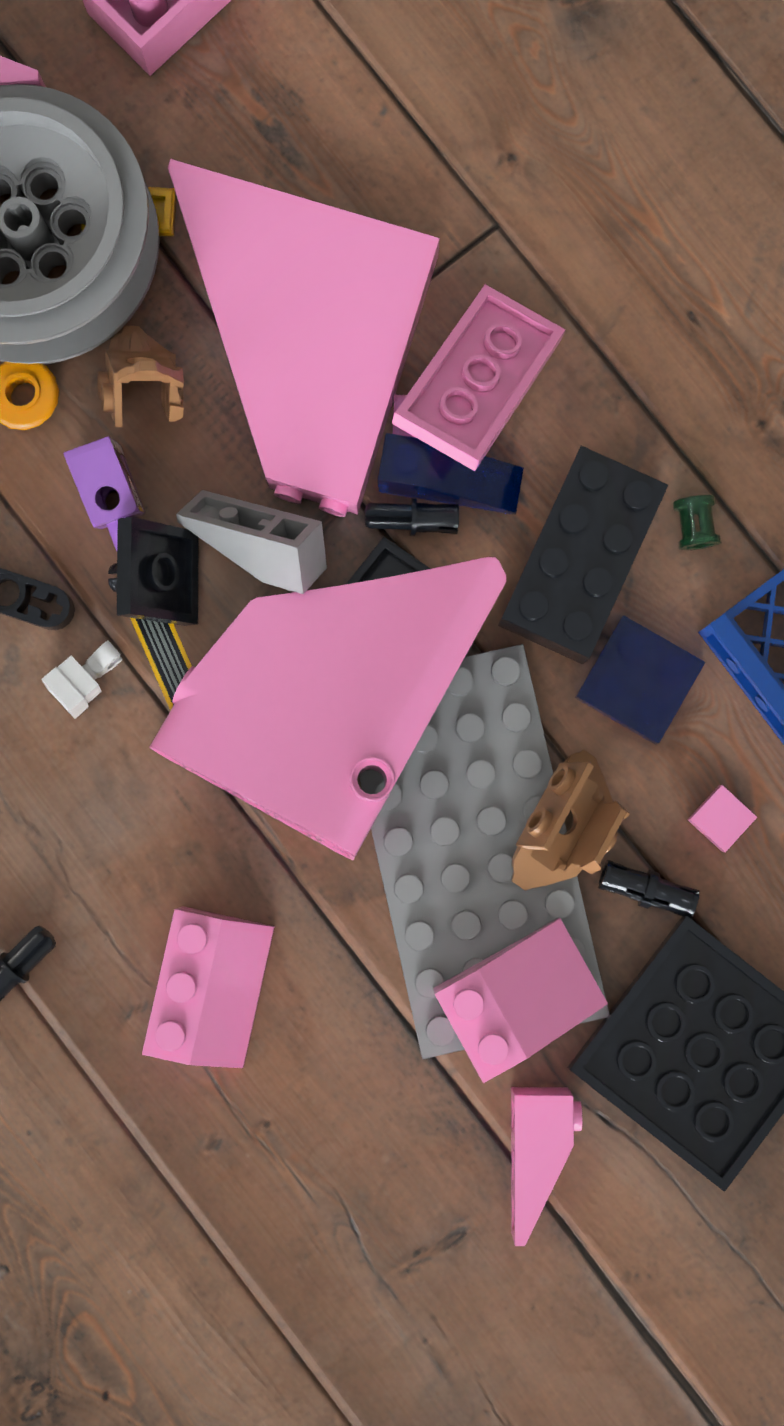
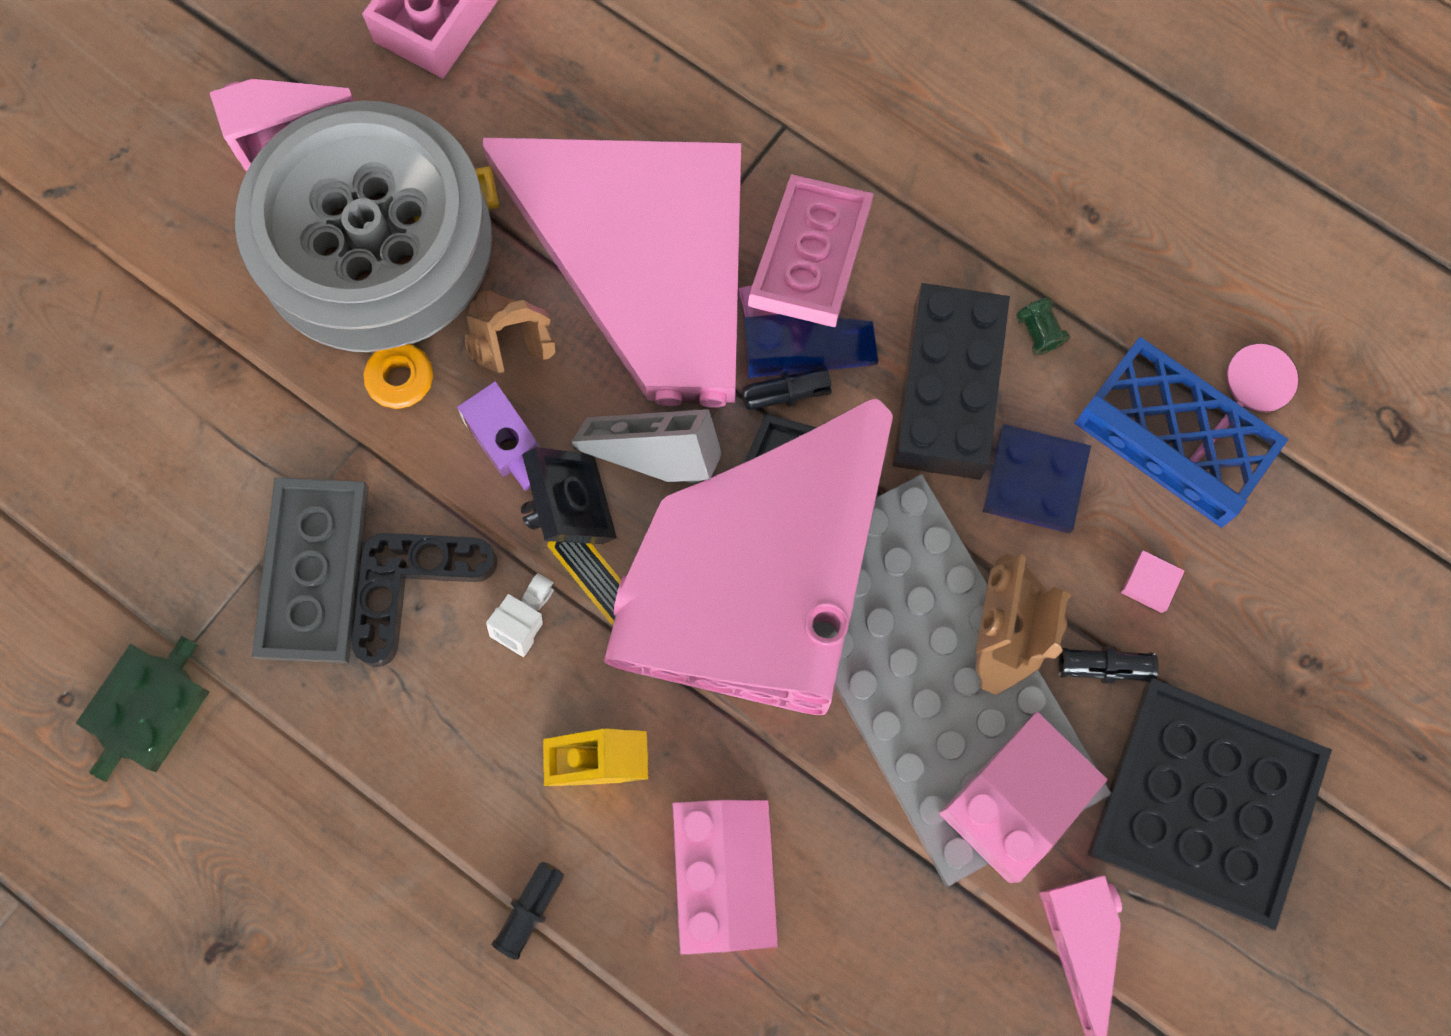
camera: 20 degrees left, 10 degrees down
(116, 841) = (595, 757): none -> yellow slope

